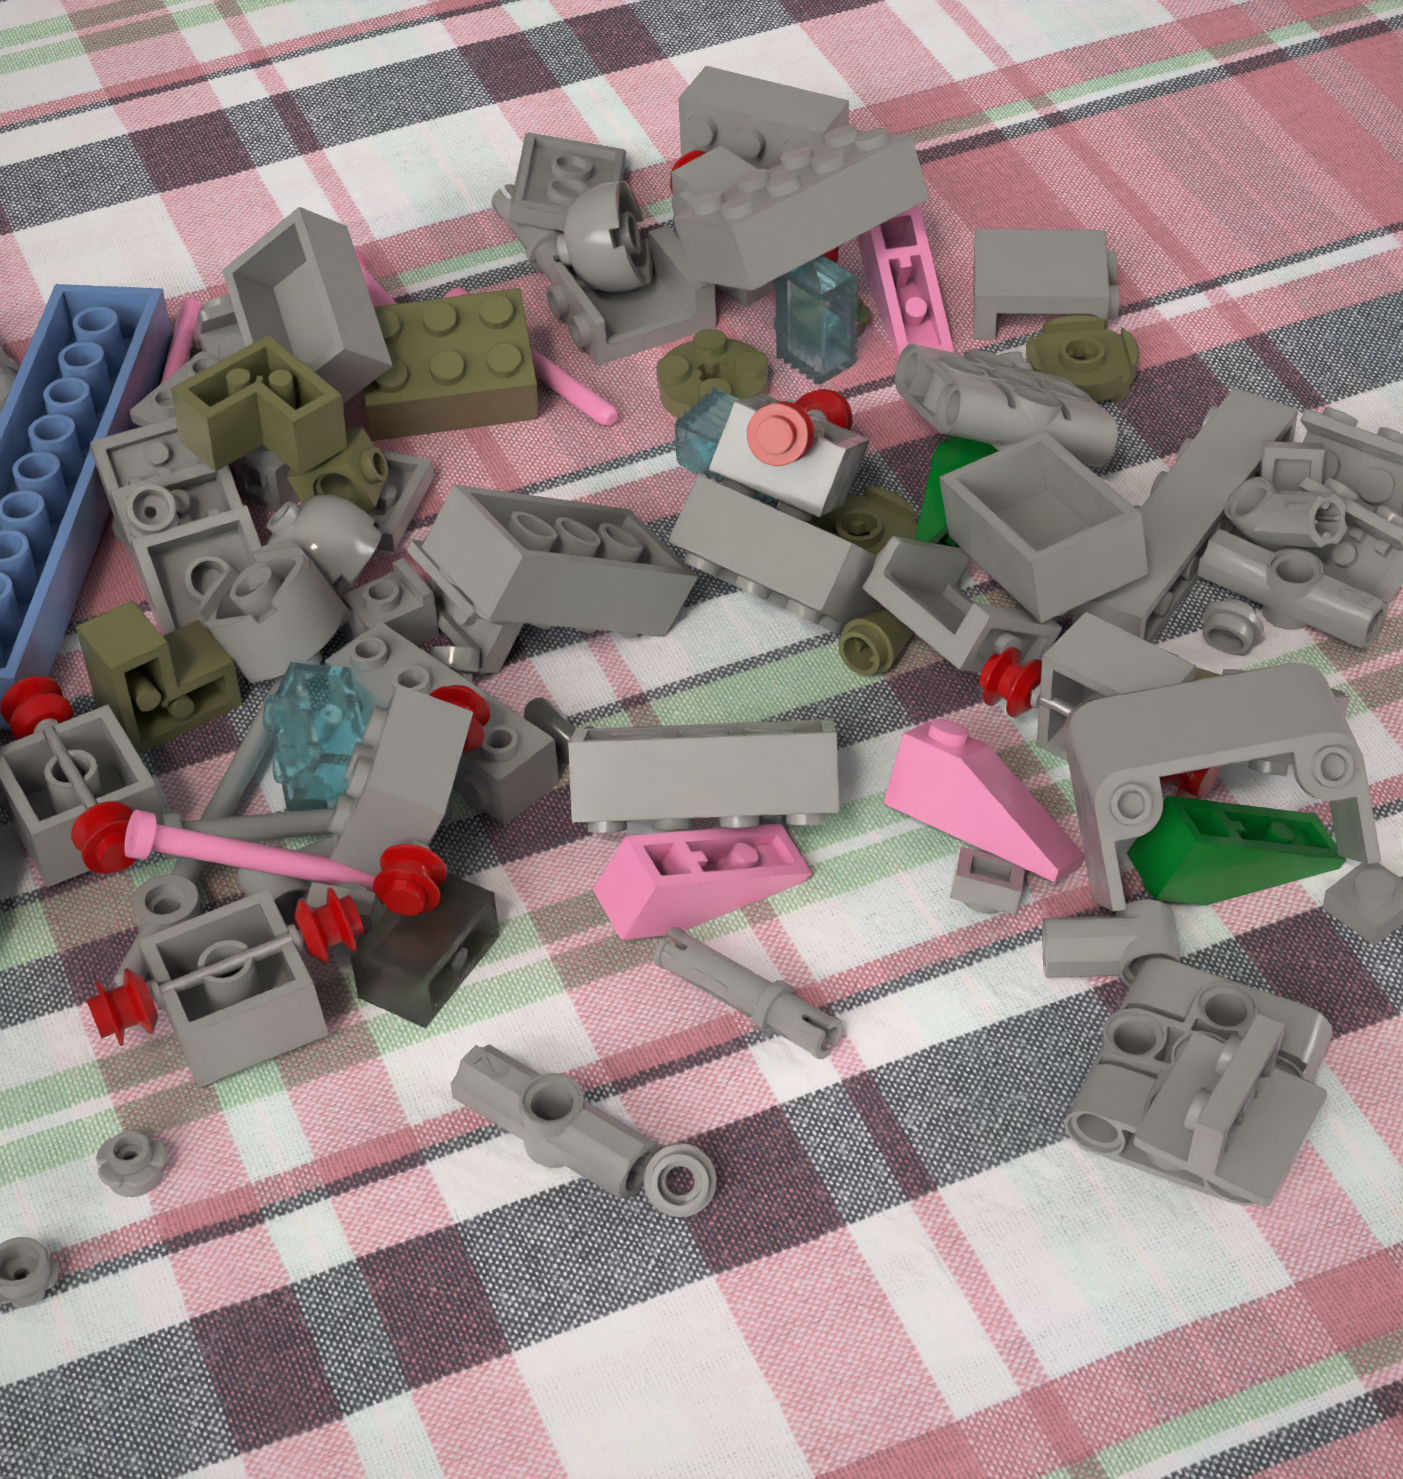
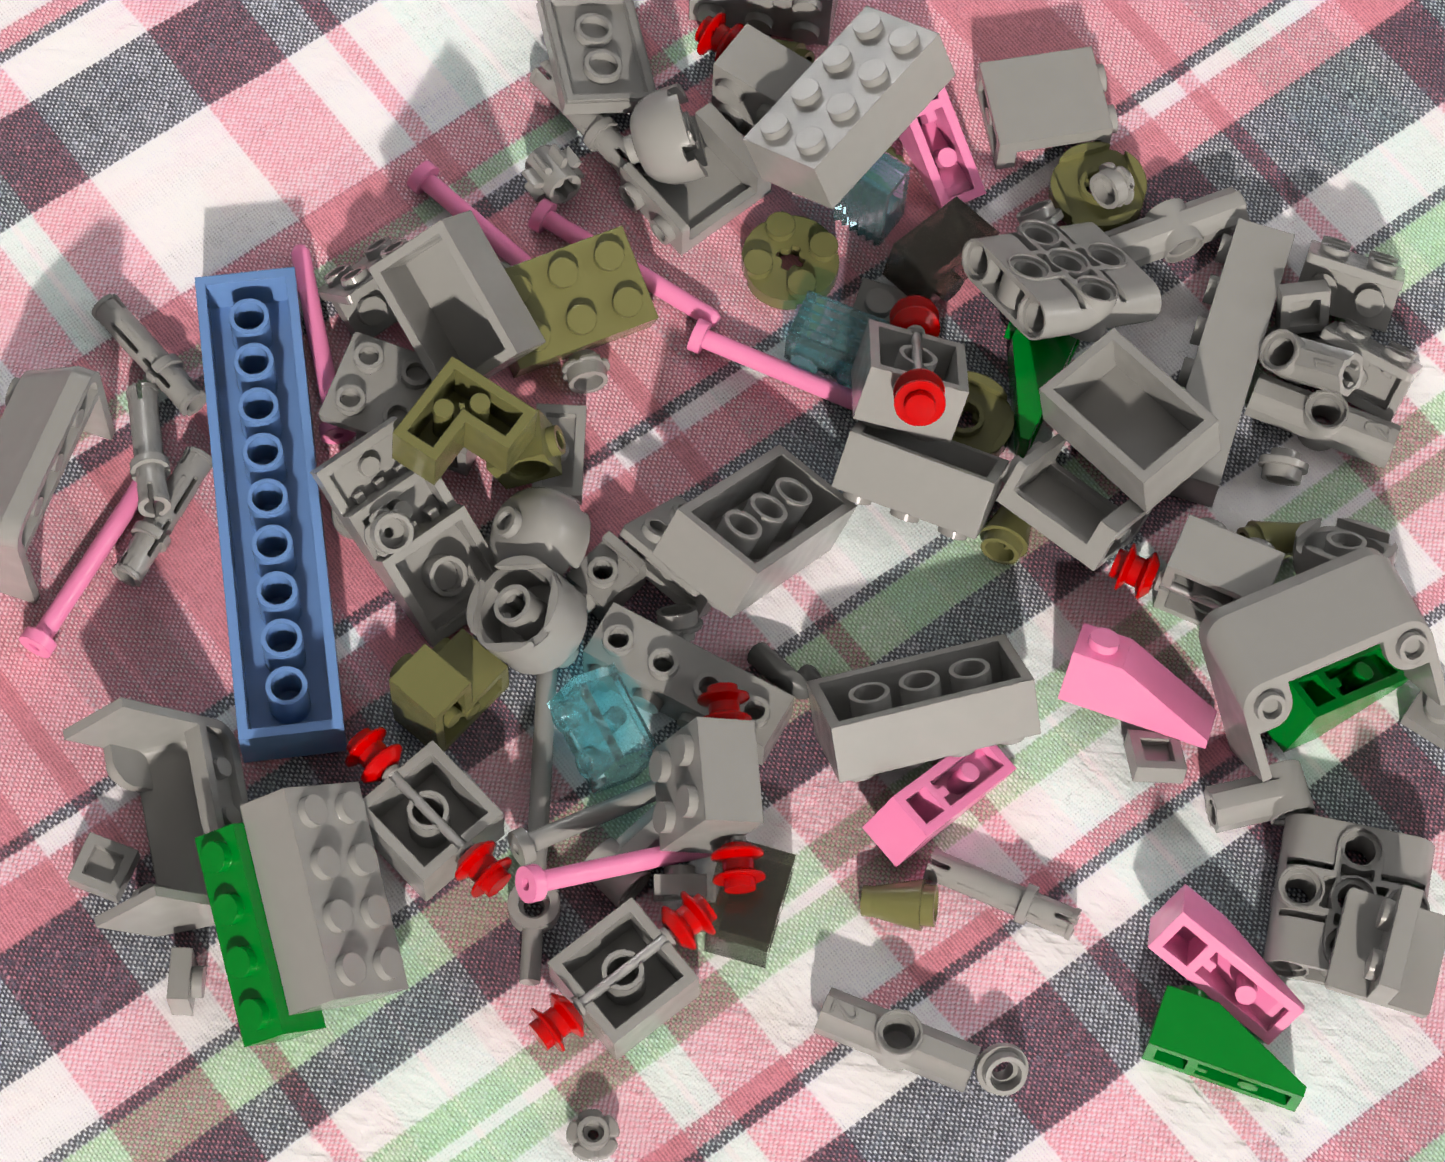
camera: 20 degrees left, 20 degrees up
(443, 447) = (586, 371): none -> light grey plate
(470, 267) = (553, 174): none -> light grey gear
(588, 426) = (704, 338): none -> bright pink bar
(620, 980) = (902, 903): none -> olive cone
(866, 378) = (929, 256): none -> clear smoke brick
(967, 1201) = (1210, 1044): none -> green slope
(1008, 1110) = (1222, 964): none -> bright pink slope
(1093, 344) = (1112, 186): none -> light grey plate
(1163, 401) = (1179, 228): none -> light grey piece

